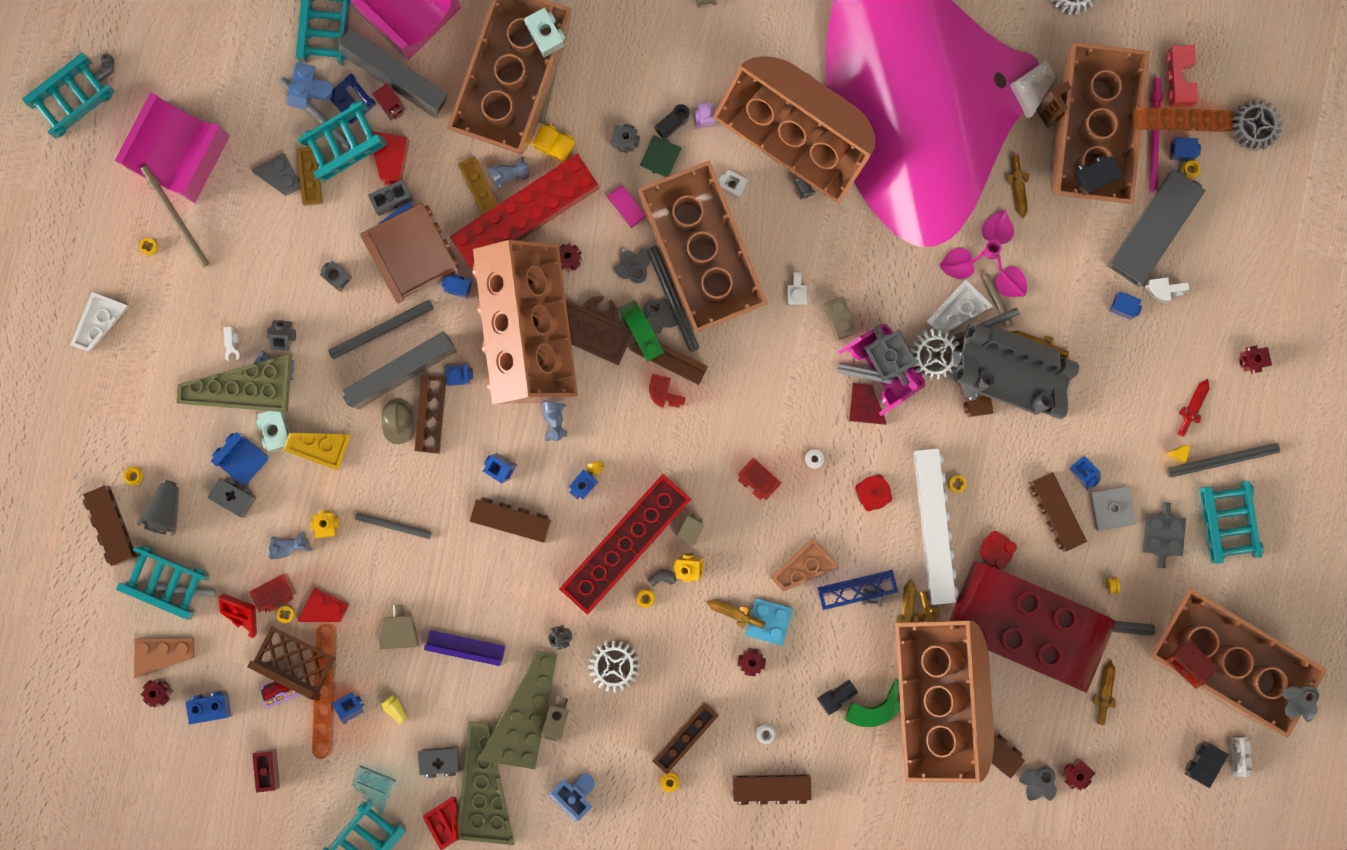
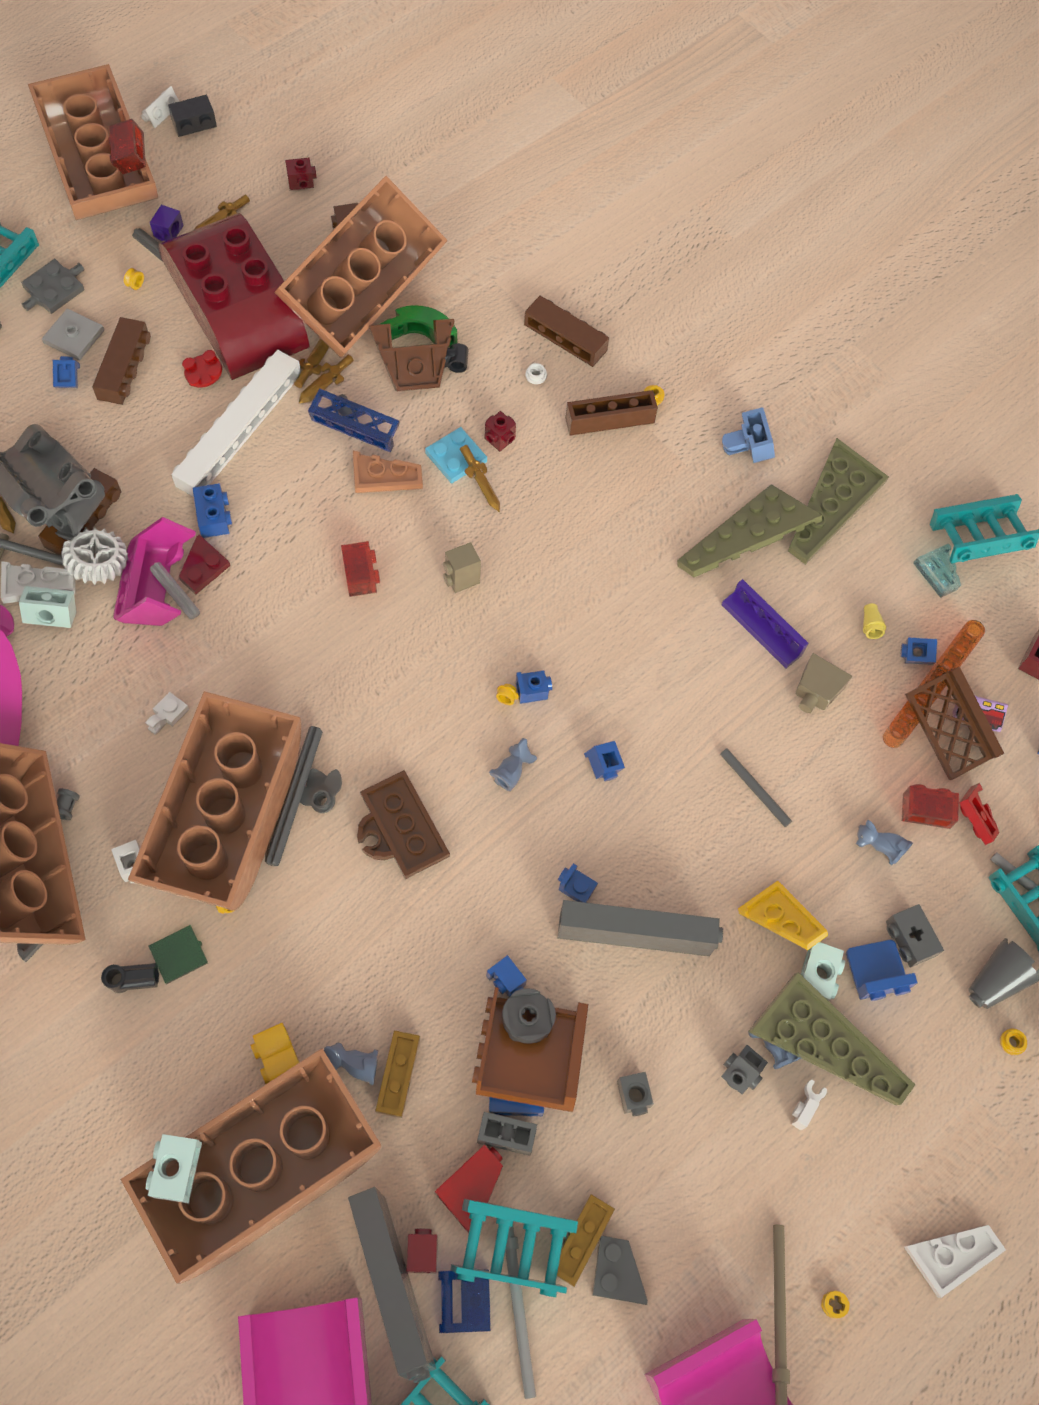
camera: 145 degrees left, 20 degrees down
(286, 608) = (933, 778): yellow bush -> none
(305, 87) = (509, 1356): medium blue brick -> none
(323, 608) = (884, 761): red wing -> none
(330, 529) = (829, 833): yellow brick -> none
(380, 329) = (626, 996): dark grey axle -> none
(397, 421) = (677, 887): dark tan piece -> none
(423, 418) = (644, 870): reddish brown fence -> none
(426, 281) = (519, 1028): none -> dark grey plate
(443, 823) = (892, 496): red wing -> none
(449, 756) = (859, 548): dark grey brick -> none
(510, 520) = (631, 704): reddish brown brick -> none
(524, 322) = (468, 866): nougat brick -> none
(528, 208) = (370, 1001): red brick -> none
(554, 729) = (723, 502): dark tan torso -> none
(560, 637) = (663, 569): dark grey gear -> none
(572, 263) = (365, 924): dark red brick -> none
(600, 676) = (619, 519): white gear -> none
(622, 132) = (196, 998): dark grey brick -> none
(625, 544) = (534, 602): red brick -> none
(626, 206) = (259, 926): dark pink slope -> none
(631, 263) = (305, 864): dark grey plate -> none
(641, 330) = (351, 783): green arch -> none
(650, 593) = (553, 544): yellow plate -> none
(659, 392) = (385, 715): clear red brick -> none
(662, 575) = (521, 557): dark grey arm -> none
(677, 363) = (349, 741): reddish brown fence -> none
(689, 567) = (491, 541): yellow brick -> none
(704, 115) = (92, 957): lavender brick -> none
(819, 463) = (292, 559): white plate -> none
(839, 318) = (150, 653): dark tan brick -> none
(850, 666) = (415, 365): none -> reddish brown wing
(873, 492) = (265, 489): red piece -> none
(891, 355) = (134, 576): dark grey plate -> none
(892, 447) = (211, 510): none -> blue brick
(930, 296) = (47, 607): none -> light aqua brick
(953, 479) = (184, 438): yellow bush -> none
(1037, 786) = (336, 193): dark grey plate -> none
(1134, 650) = (166, 223): none -> dark purple brick
(1298, 704) = (70, 74): dark grey plate -> none

